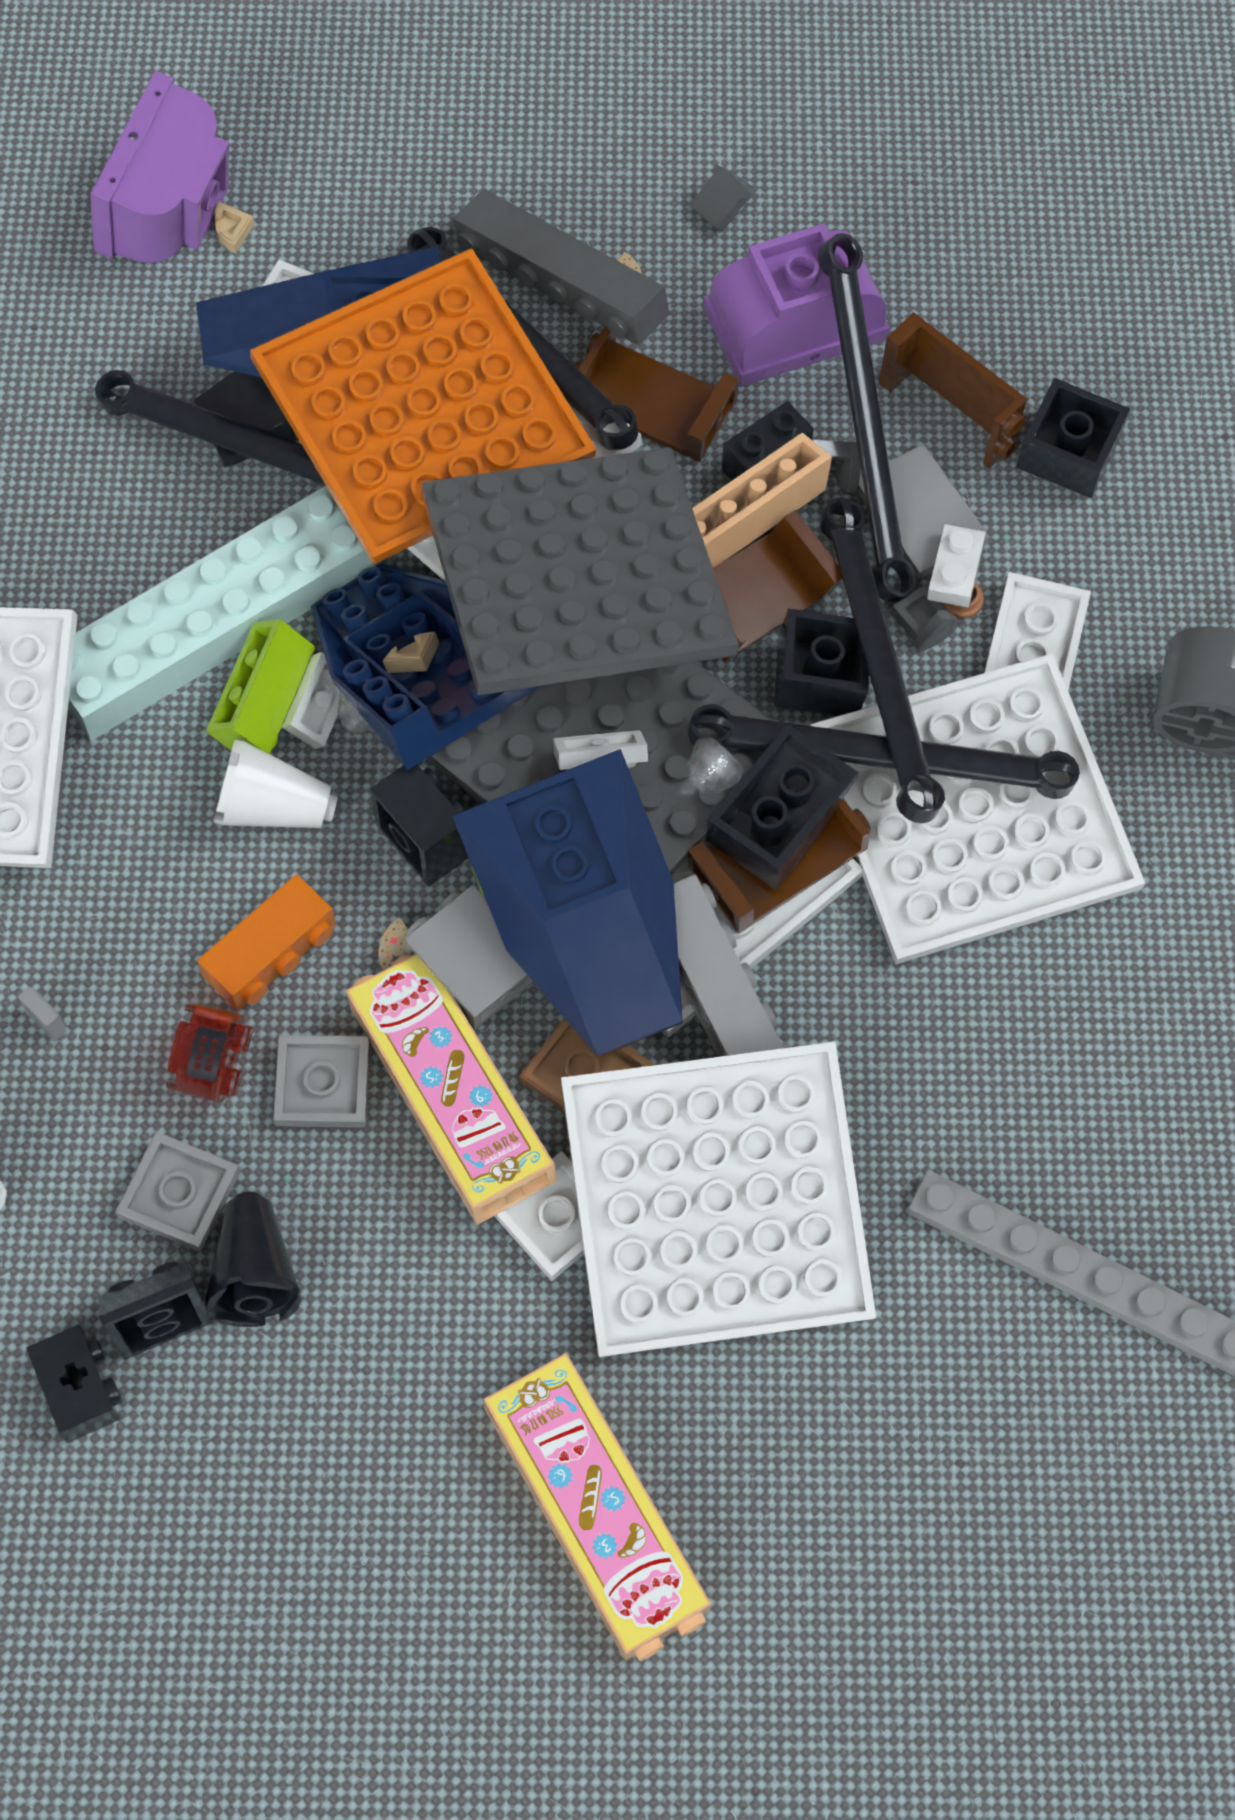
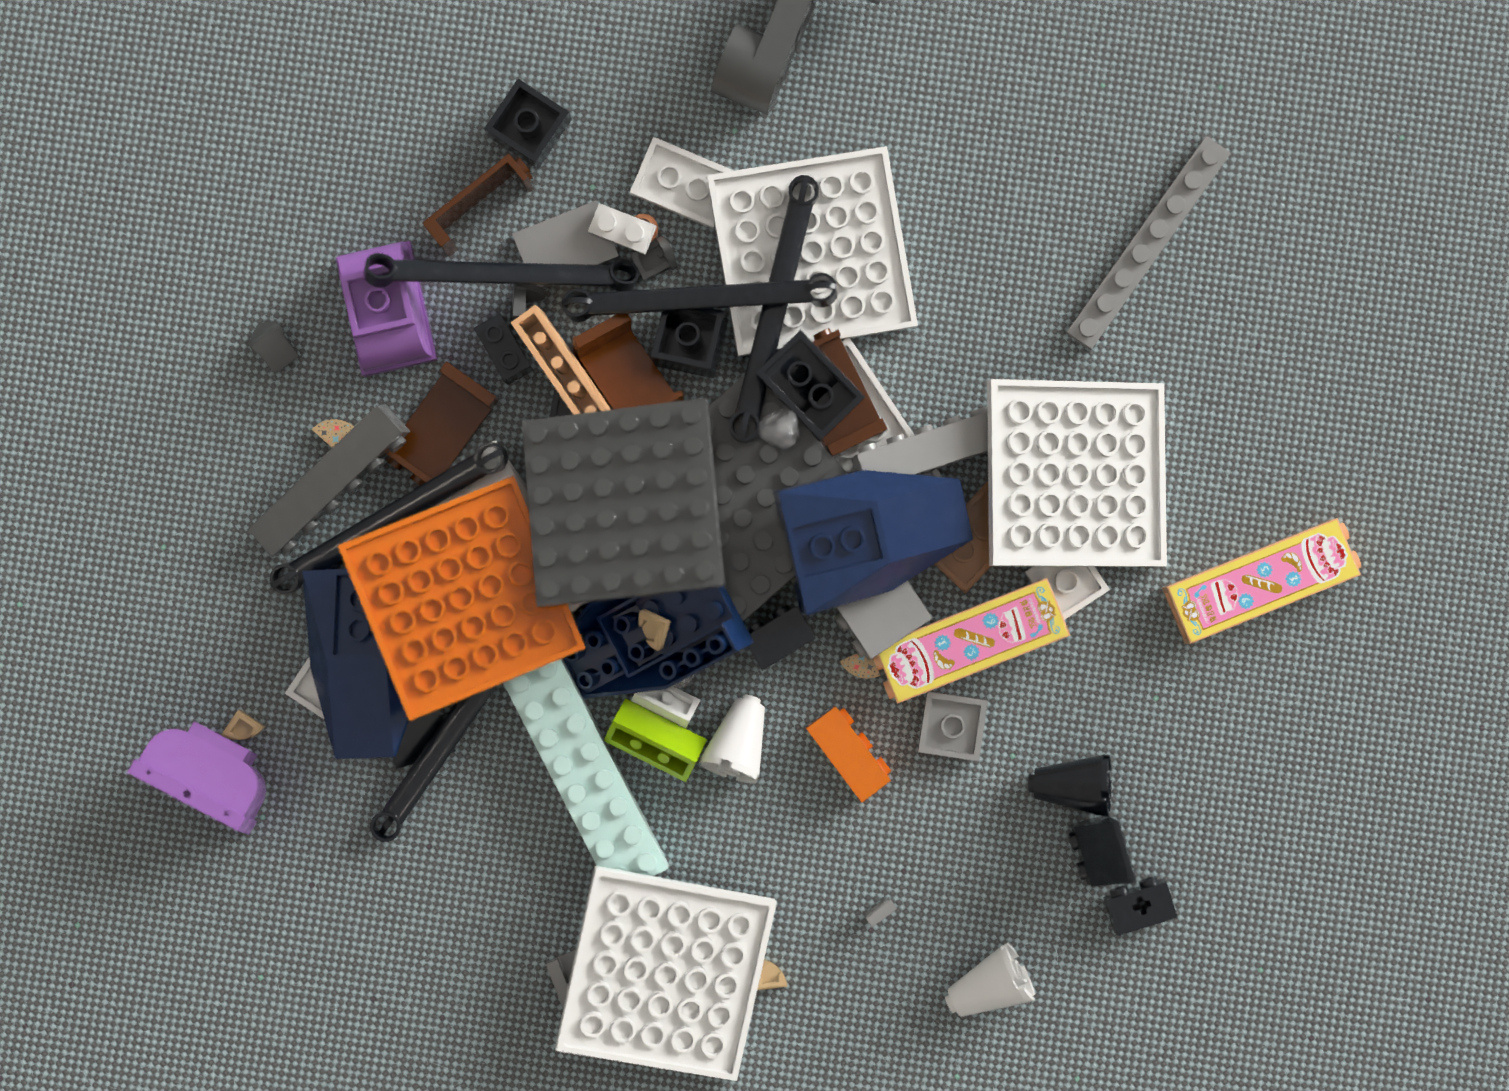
camera: 80 degrees left, 20 degrees up
(178, 1191) = (1017, 829): light grey plate -> none
(208, 1053) = (930, 799): clear red brick -> none
(581, 749) = (757, 506): white plate -> none

